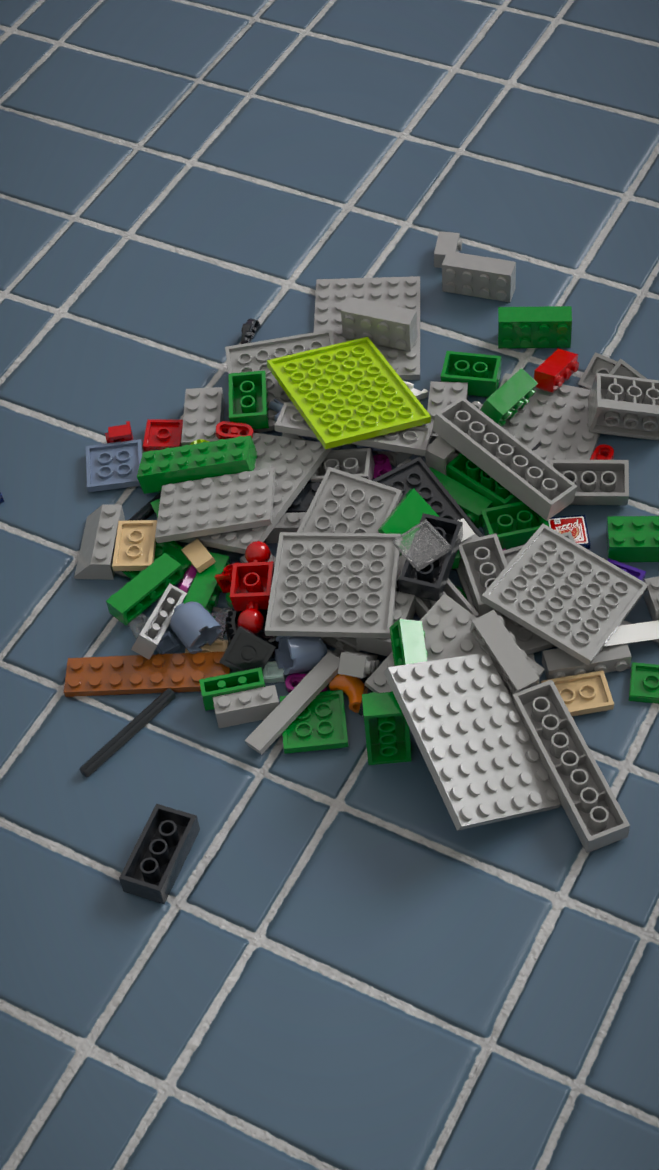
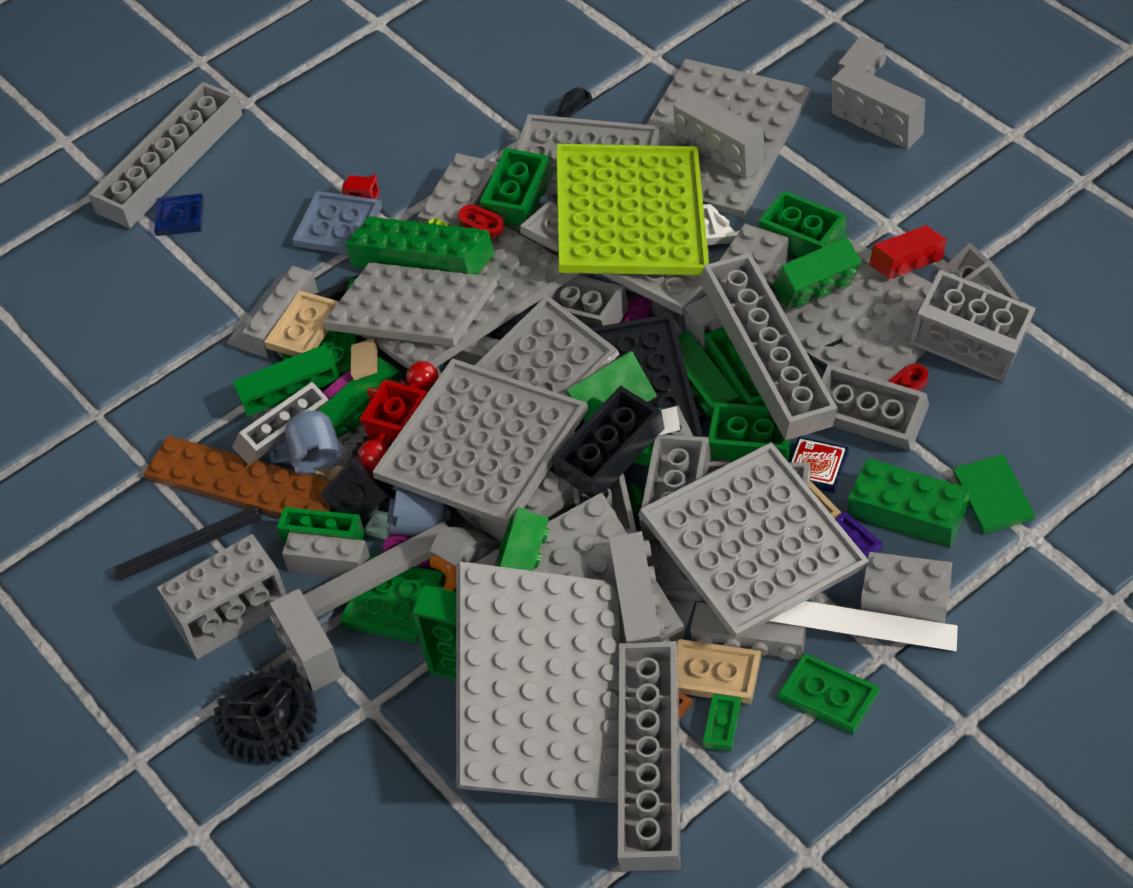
camera: 25 degrees right, 0 degrees up
(159, 853) = (140, 696): black brick -> none
(162, 434) = (405, 201): red plate -> none
(187, 758) = (223, 596): none -> light grey brick
(268, 770) = (304, 640): none -> light grey brick
(275, 845) = (274, 736): none -> black gear
(422, 545) = (597, 424): clear tile -> none
(534, 327) = (911, 189): green brick -> none
(602, 727) = (722, 722): none -> green plate

